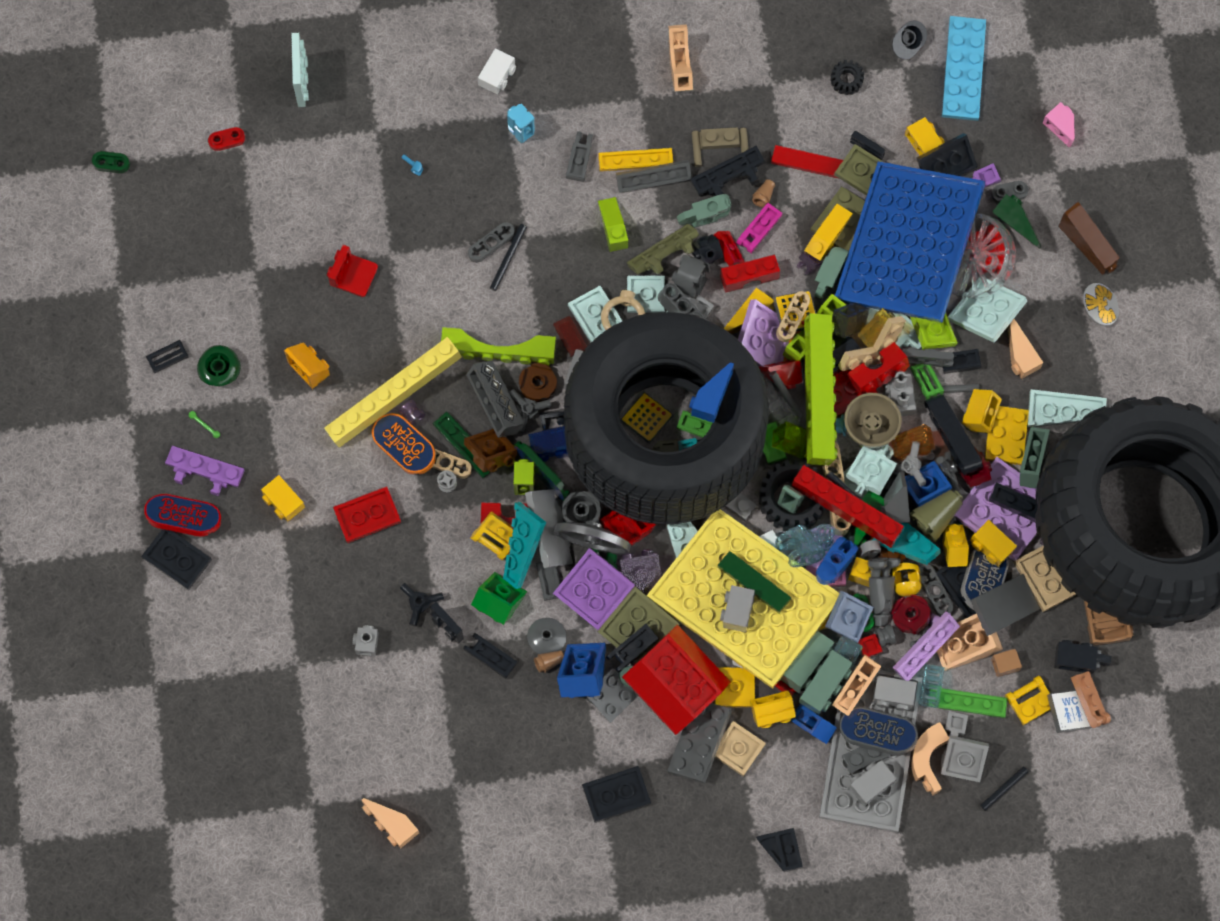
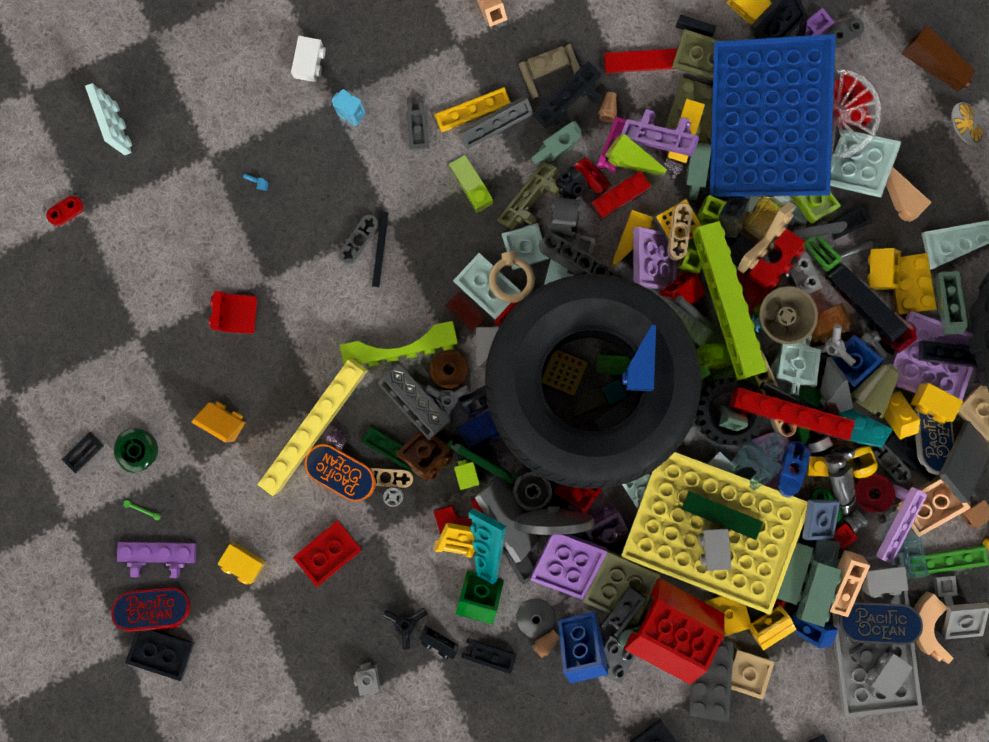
camera: 15 degrees left, 15 degrees up
(769, 240) = (629, 155): none -> lime slope
(792, 224) = (675, 140): none -> medium lavender hinge
(1015, 216) = (866, 59): dark green slope -> none

